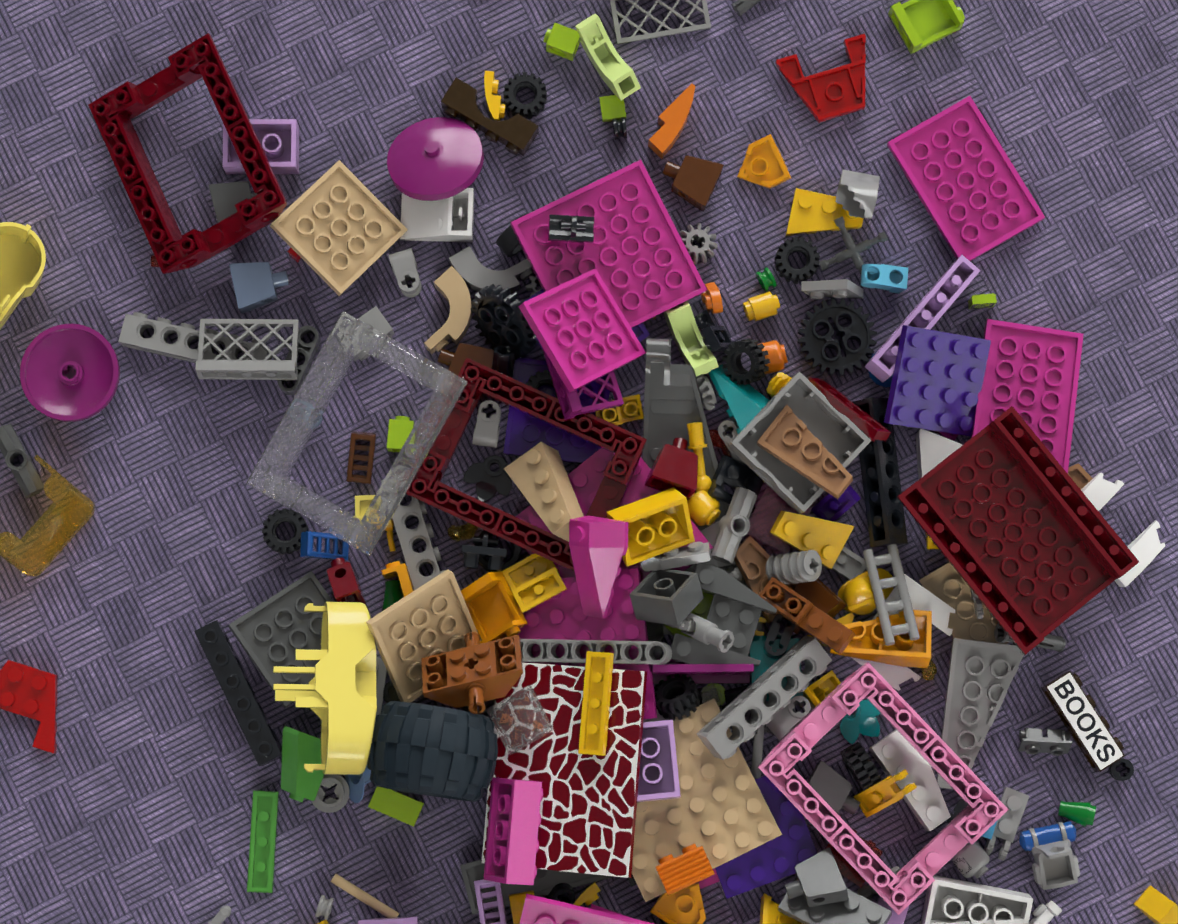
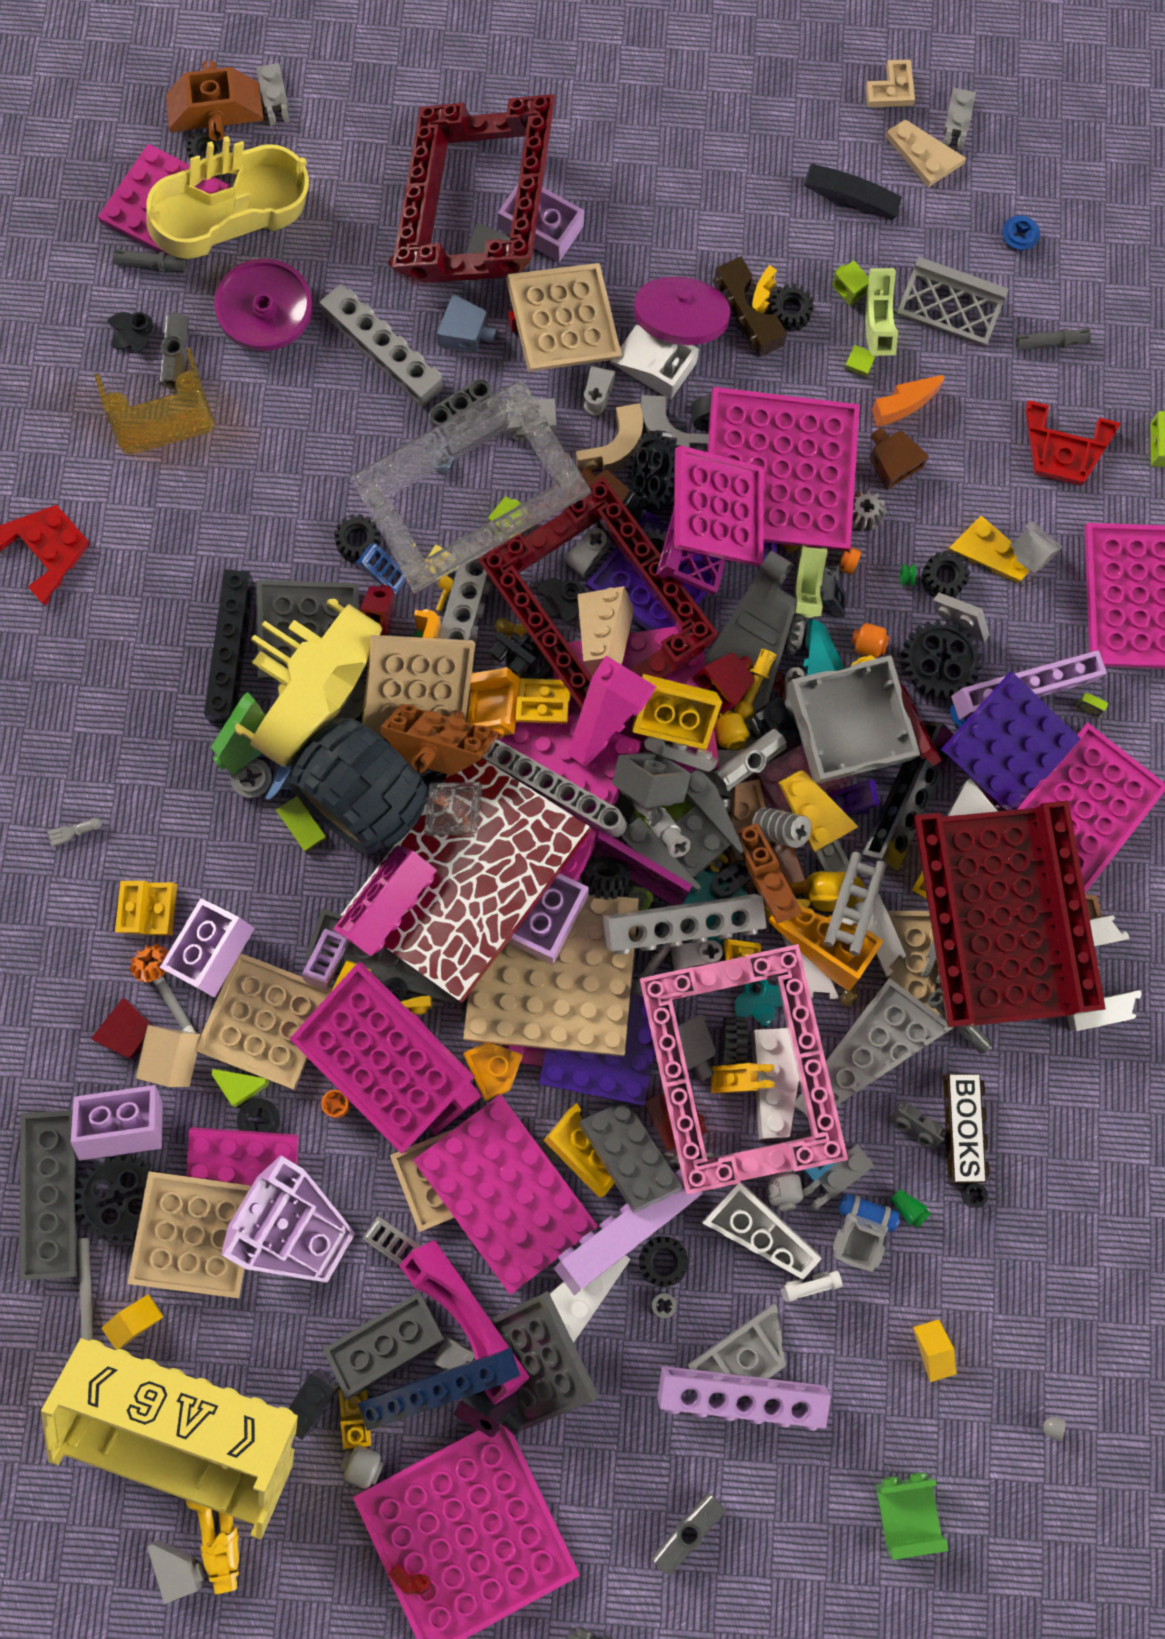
camera: 30 degrees right, 5 degrees down
(242, 368) = (412, 380): light grey fence -> none
(263, 841) = (167, 785): bright green tile -> none
(324, 907) = (181, 872): light grey bush -> none
(352, 456) = (454, 512): reddish brown slope -> none
(364, 897) = (221, 883): tan bar -> none
(571, 228) = (762, 419): black hips -> none
(596, 703) = (528, 829): yellow plate -> none
(619, 128) = (856, 379): black bush -> none
(629, 411) = (714, 608): yellow slope -> none
(685, 869) = (515, 1028): orange brick -> none
(734, 365) = (838, 622): black tyre -> none
(761, 306) = (889, 595): yellow brick -> none
(764, 164) = (965, 479): light orange plate -> none
(803, 452) = (850, 724): medium nougat wing -> none
(818, 880) = (632, 1117): torso -> none
(853, 250) = (1000, 596): dark grey piece -> none
(884, 277) = (1015, 632): medium azure leg -> none

